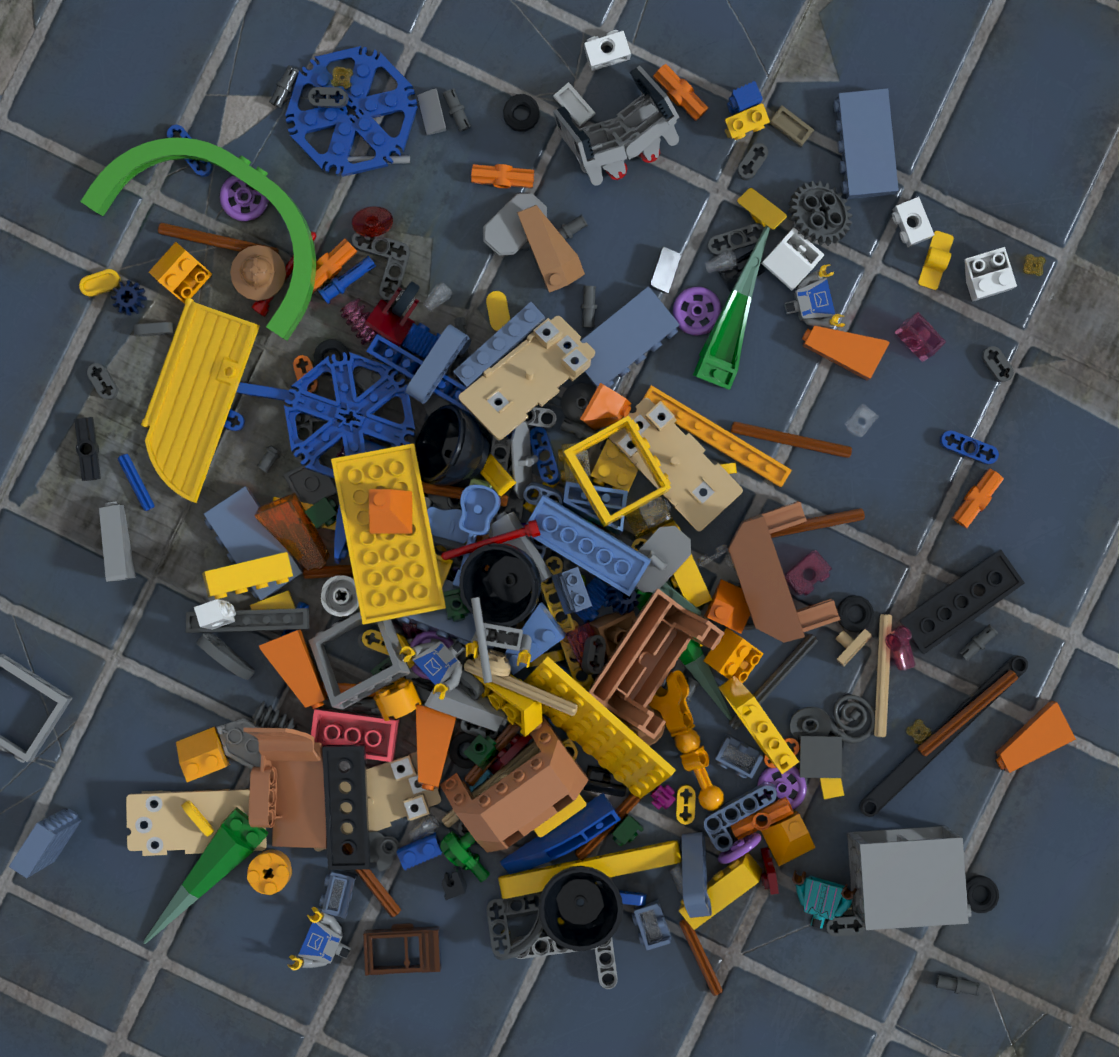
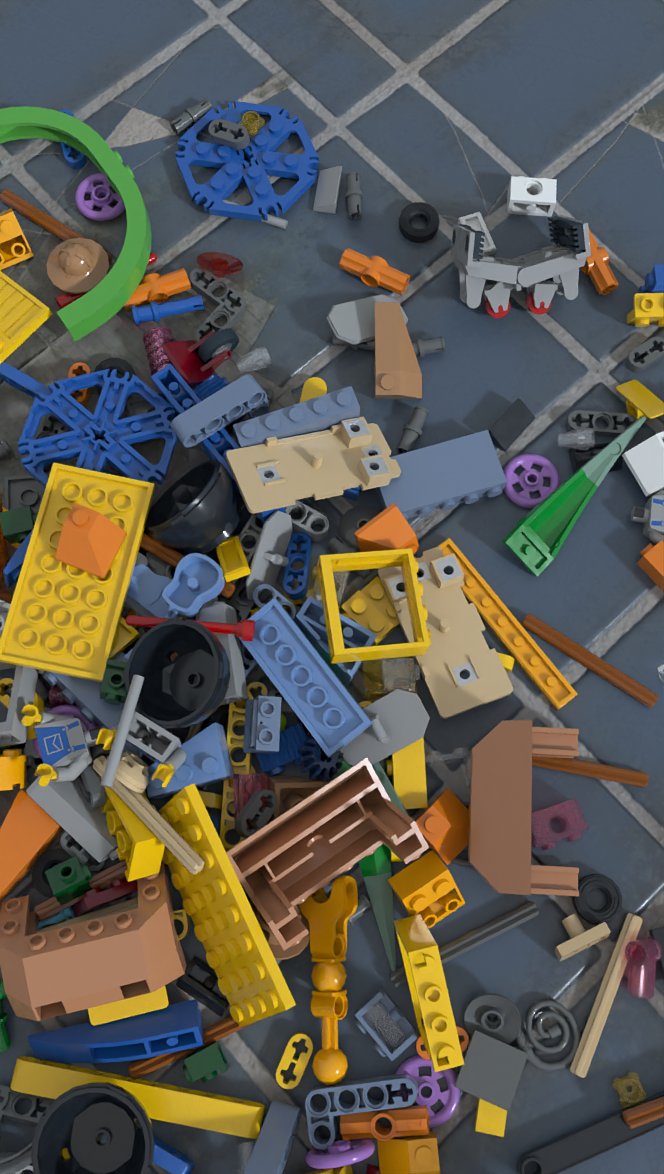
camera: 25 degrees right, 15 degrees down
(662, 797) = (269, 1037): magenta gear -> none

